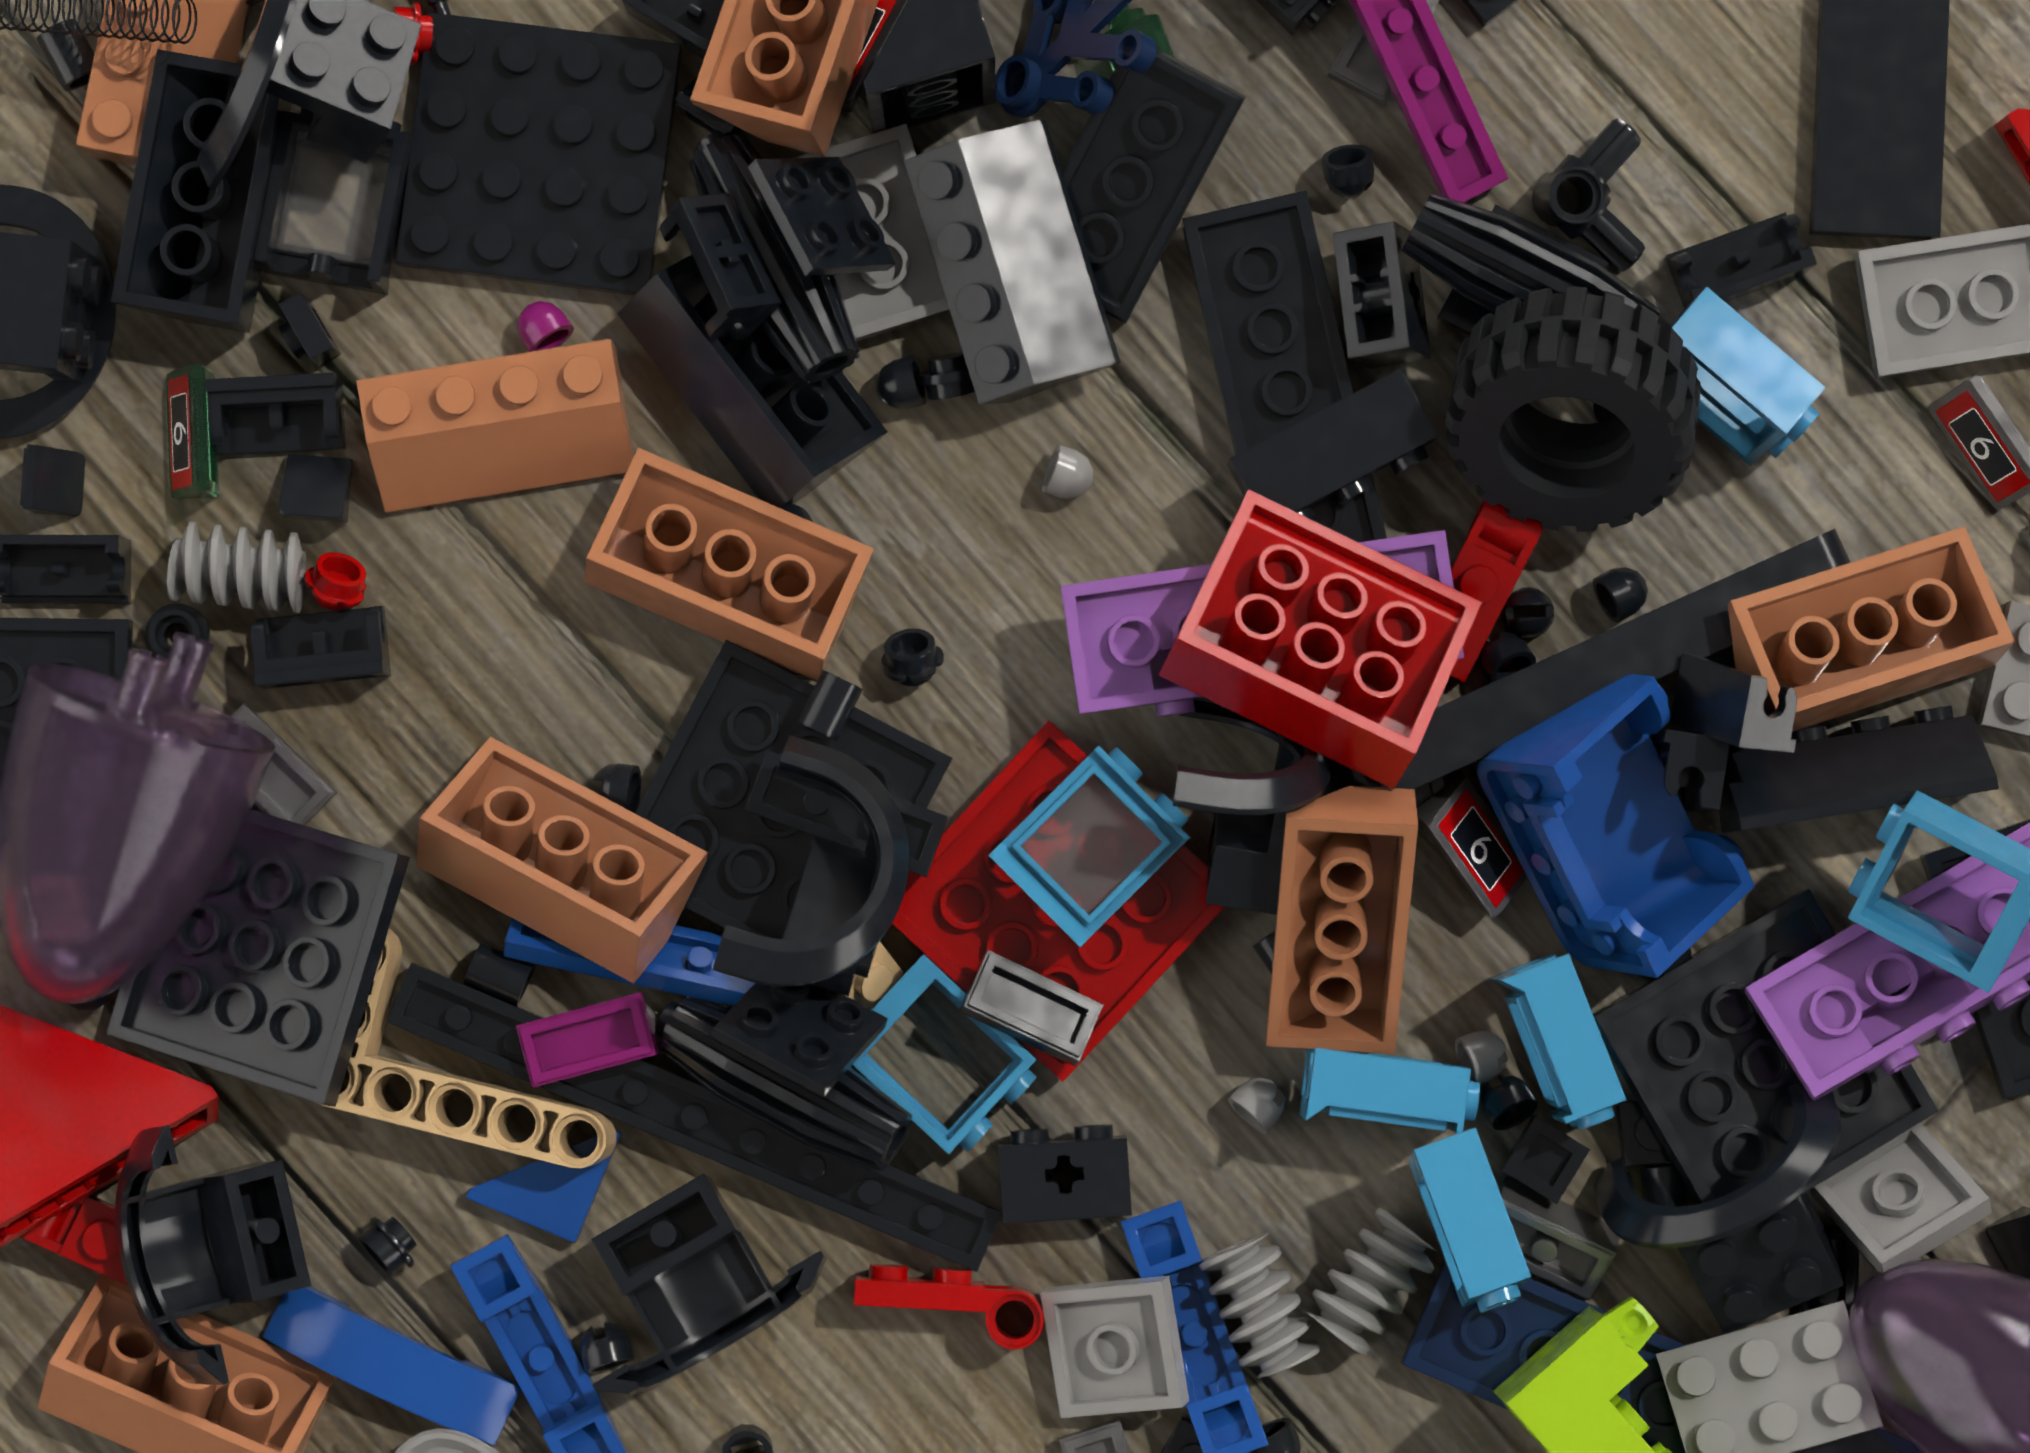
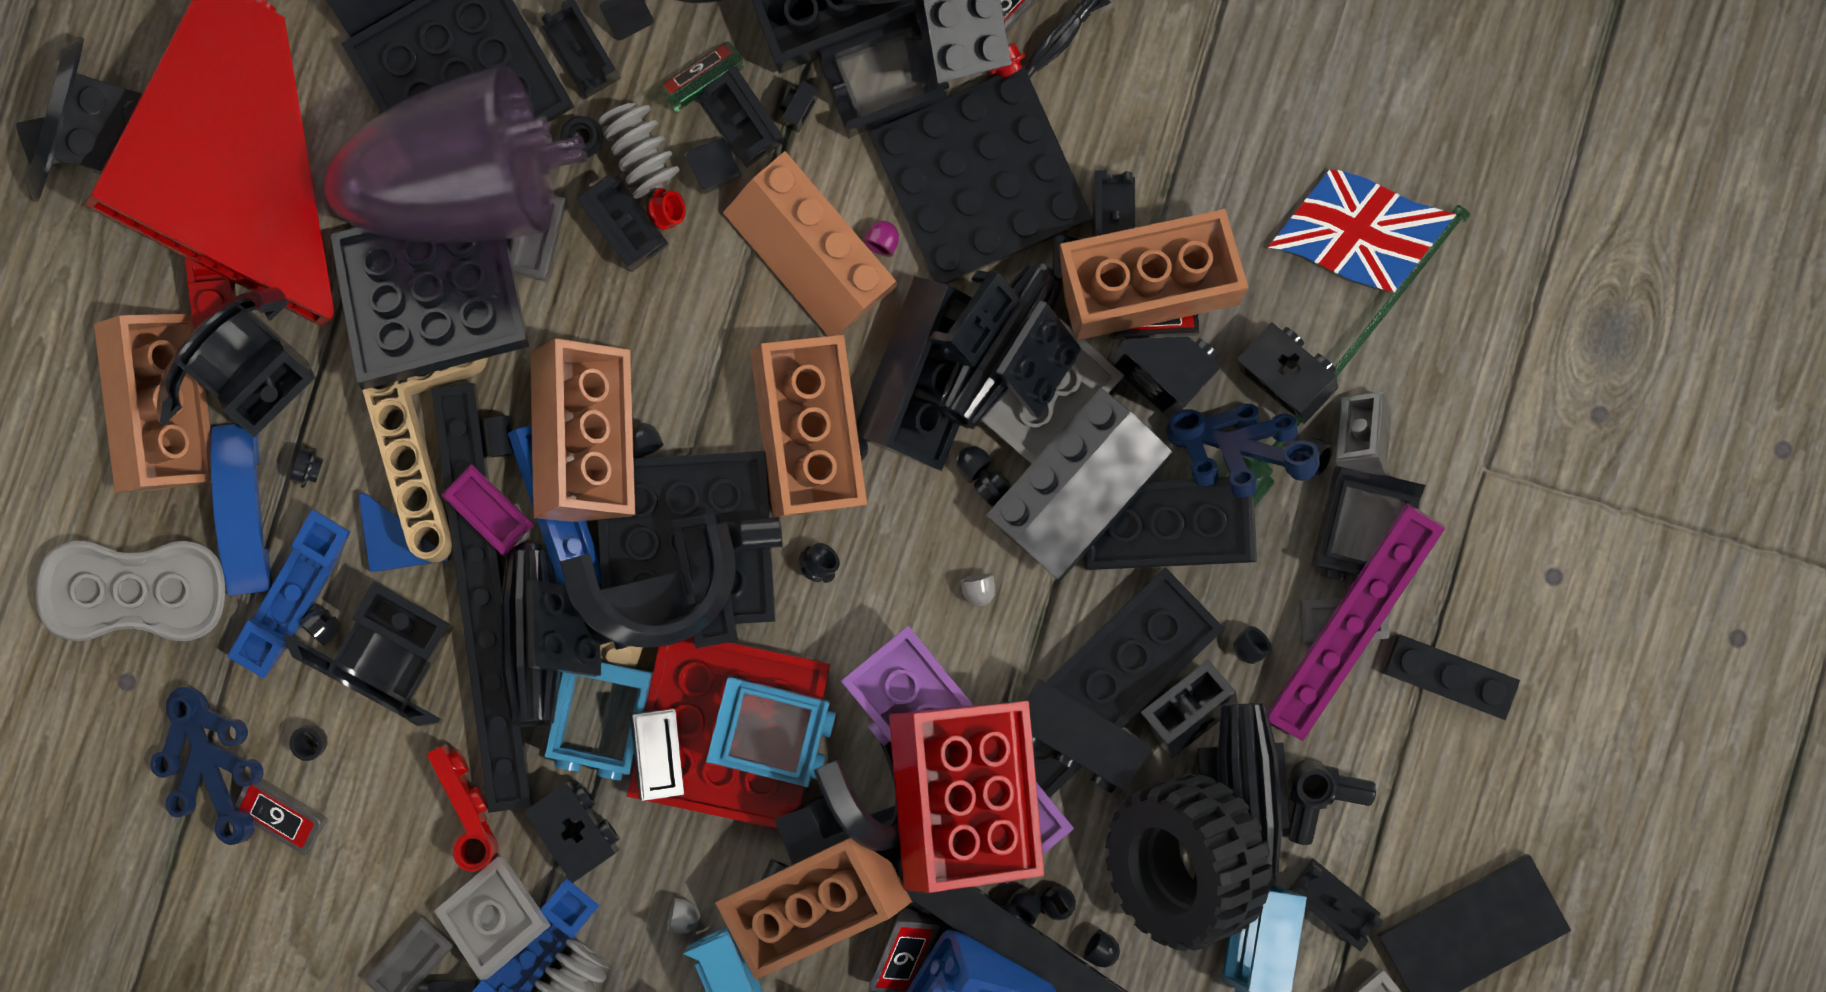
camera: 65 degrees right, 0 degrees up
(1488, 571) = (1069, 866): red plate -> none

